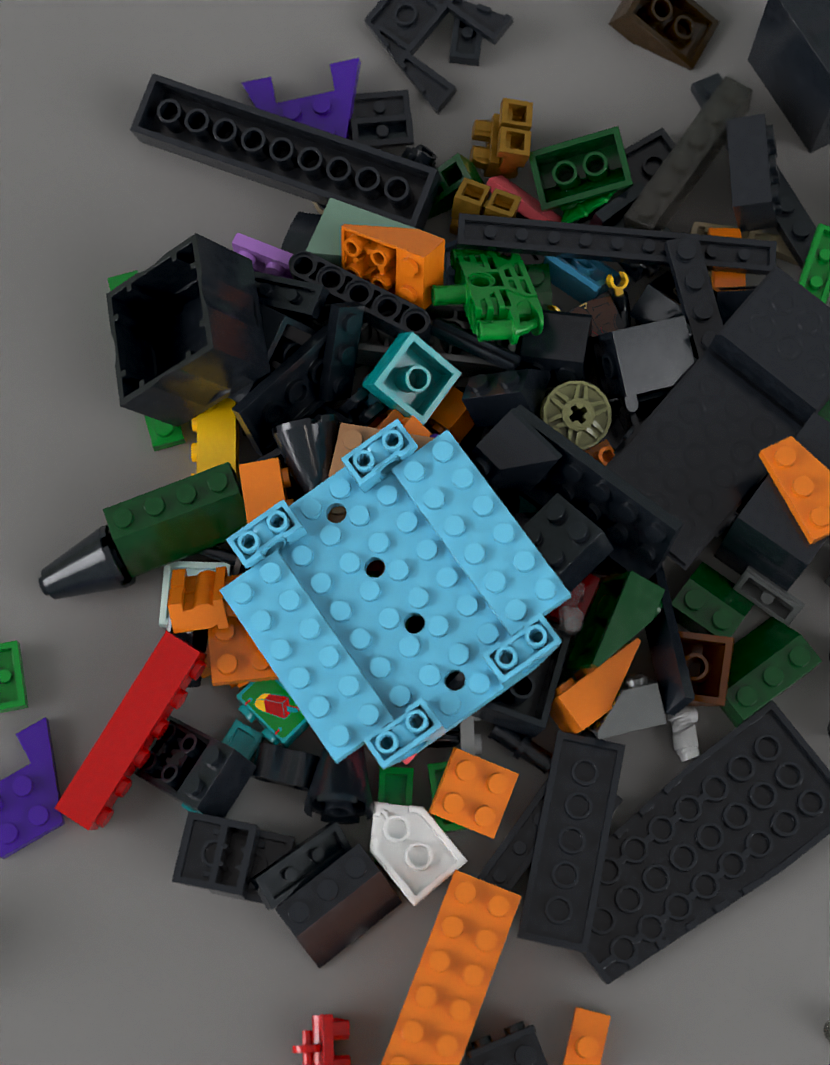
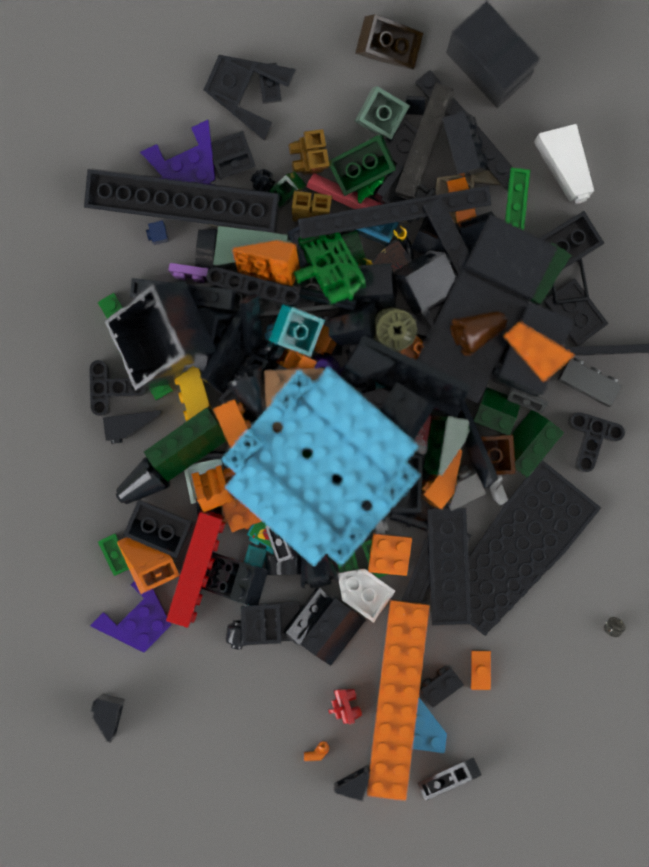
camera: 10 degrees left, 15 degrees up
(57, 699) = (147, 565): none -> orange slope
(85, 405) = (109, 390): none -> black beam
(90, 647) = (158, 528): none -> black slope
(94, 473) = (126, 425): none -> black slope
(163, 866) = (234, 635): none -> black head
(233, 199) = (157, 232): none -> dark blue plate
(291, 729) = (282, 550): none -> black slope
(632, 106) = (381, 113): none -> sand green slope
(682, 113) = (417, 105): none -> black slope
(711, 442) = (477, 330): none -> reddish brown cone

